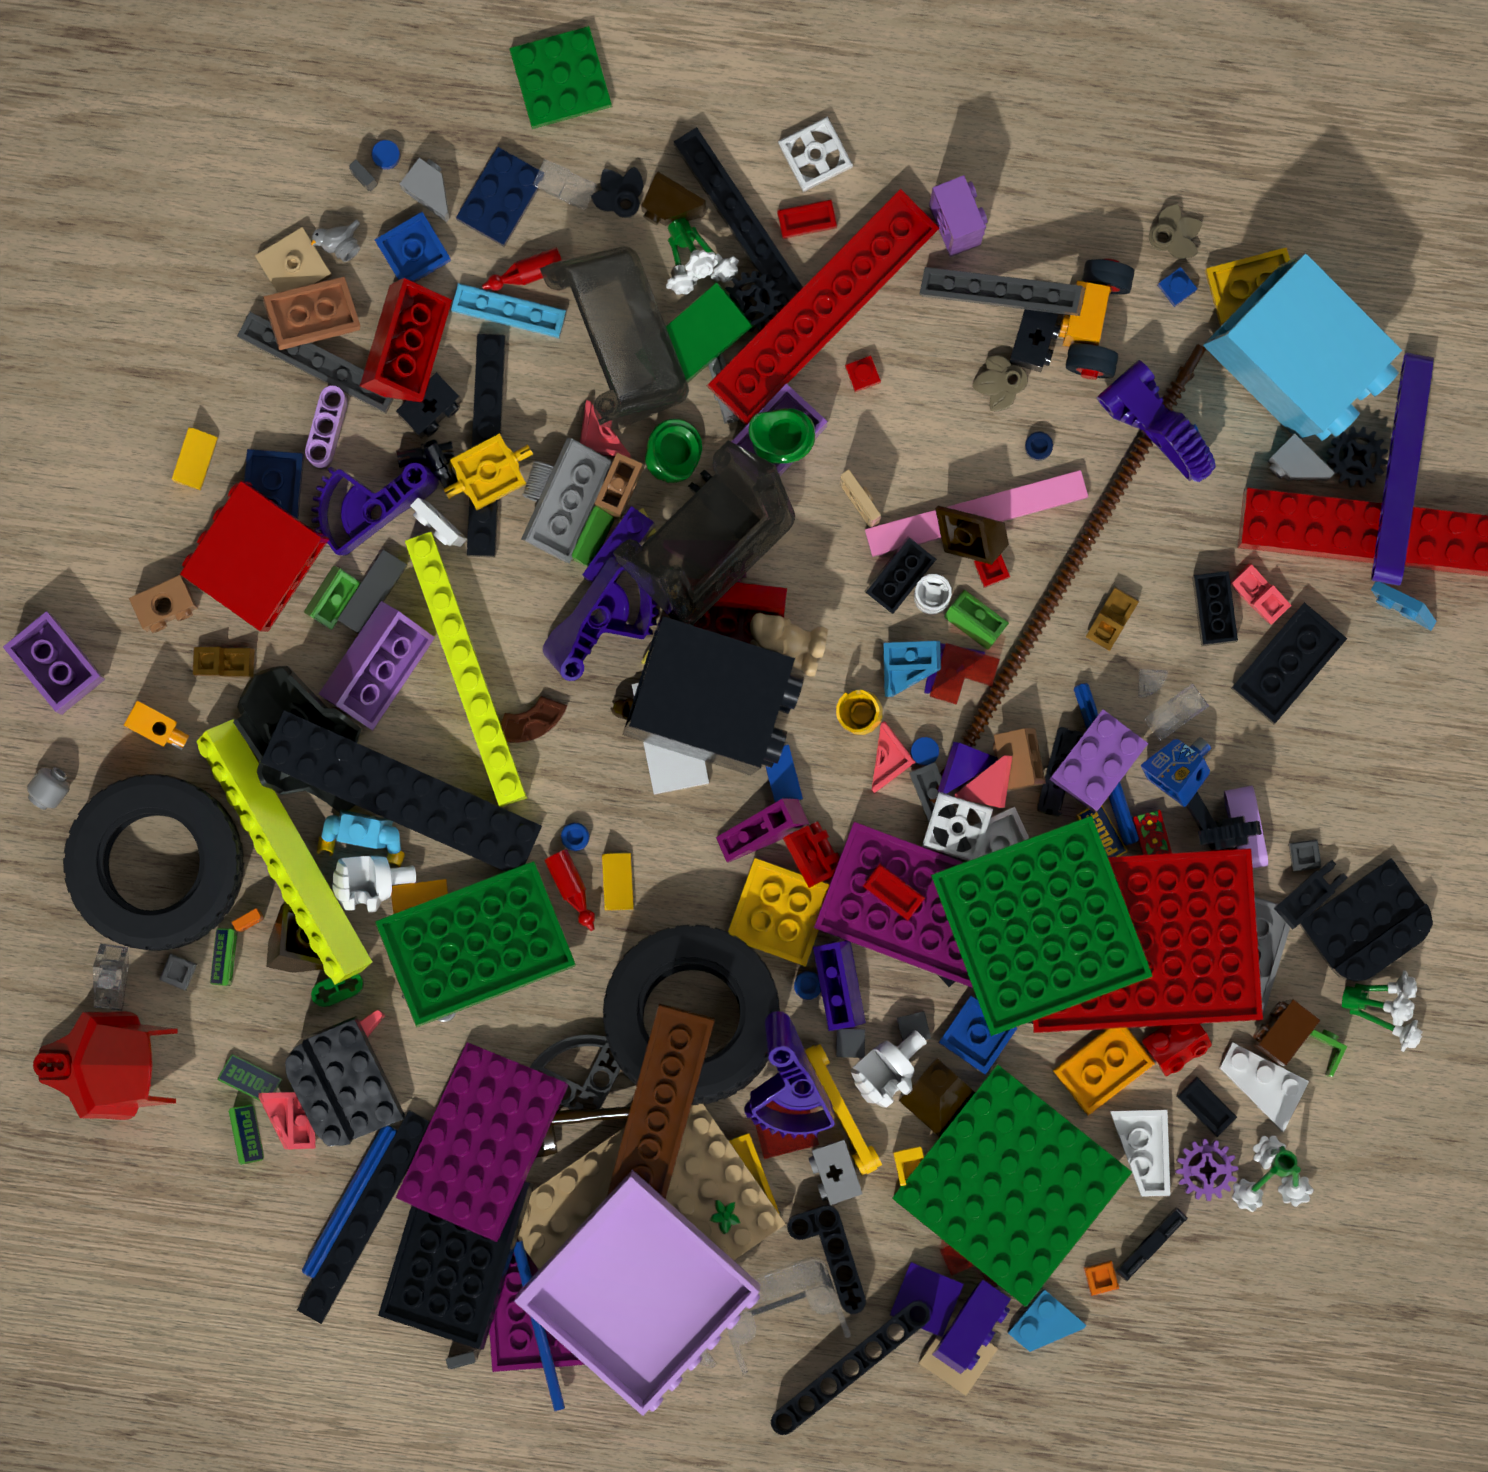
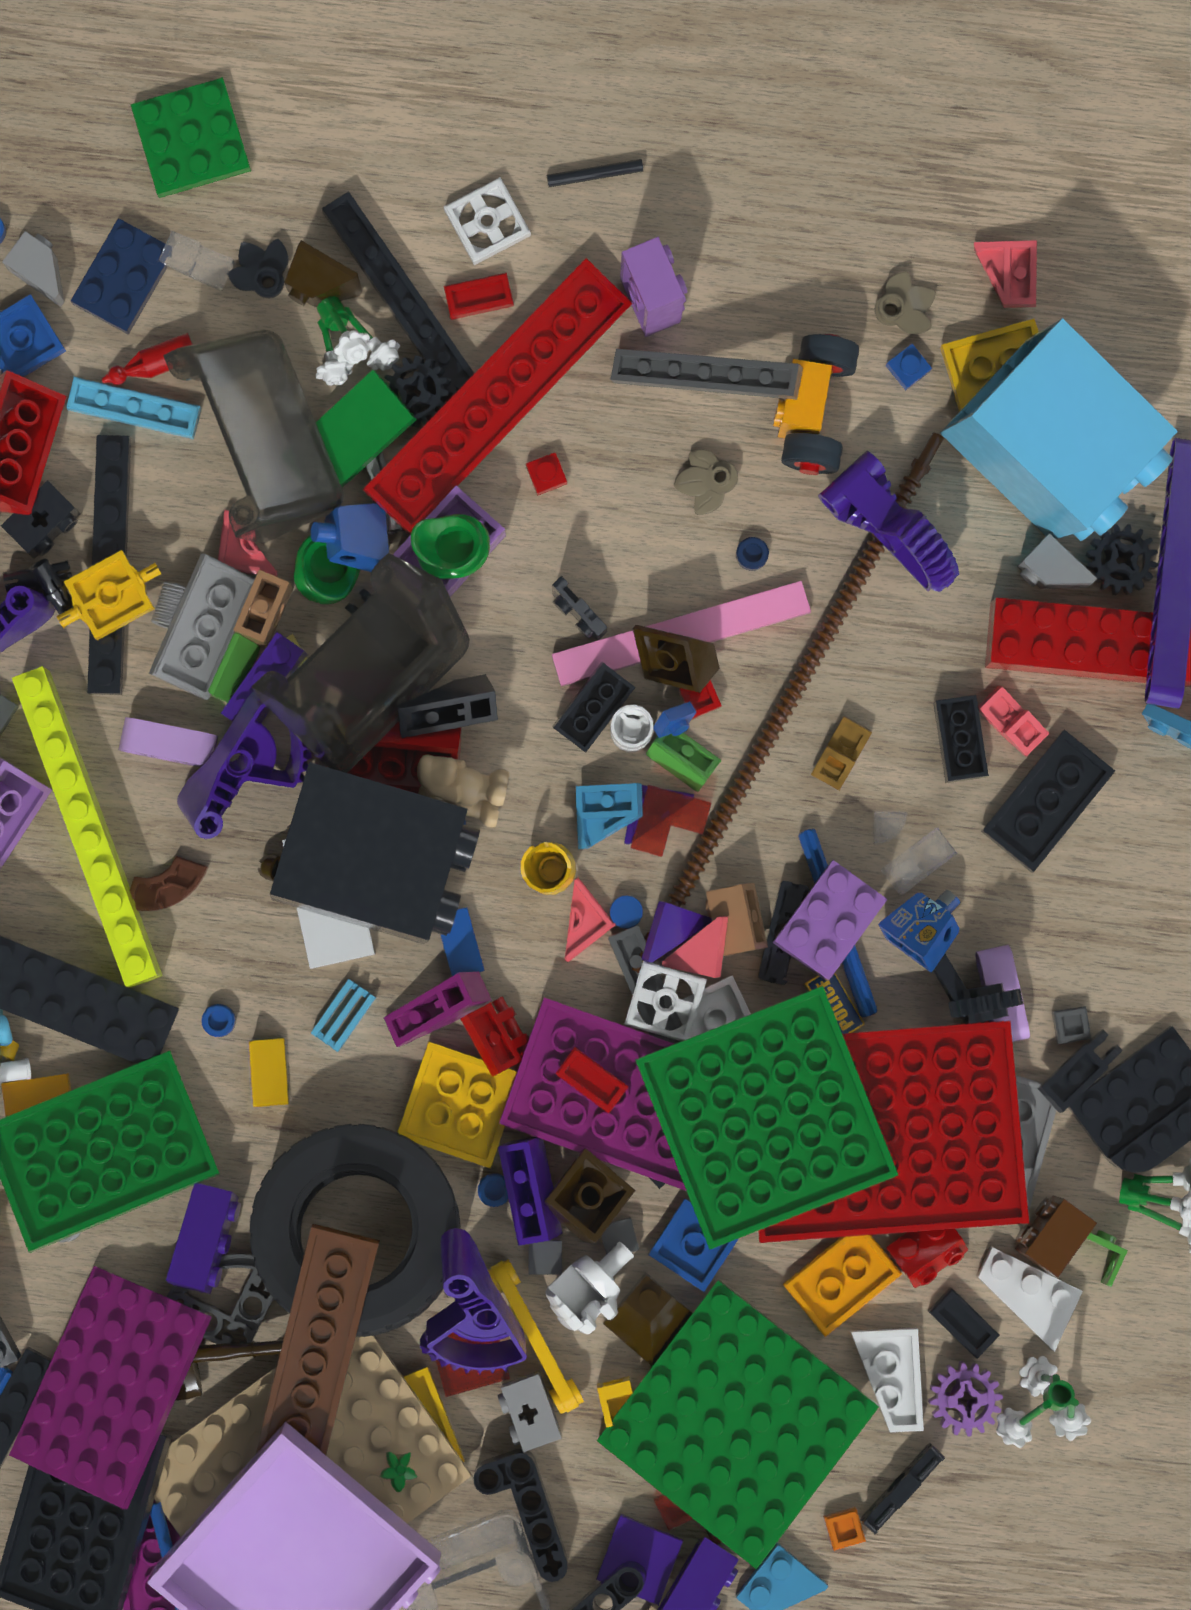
camera: 10 degrees left, 0 degrees up
(430, 516) = (59, 663): white plate -> none
(534, 598) = (167, 742): none -> lavender beam
(561, 1020) = (203, 1238): none -> dark purple brick
(570, 885) = (213, 1078): red wheel -> none
(695, 815) = (332, 1008): none -> medium azure tile
(698, 425) = (354, 535): none -> blue torso
(777, 572) = (449, 707): none -> black slope
(860, 499) = (545, 618): tan plate -> none
(880, 485) = (566, 601): none -> black wing
(888, 991) = (588, 1197): none -> dark brown slope
(908, 114) = (595, 173): none -> black bar
(969, 588) = (674, 720): none -> blue plate
(1030, 355) = (739, 448): black brick -> none
(1152, 833) = (893, 1004): tile -> none
(1267, 204) = (1011, 270): none -> coral wing

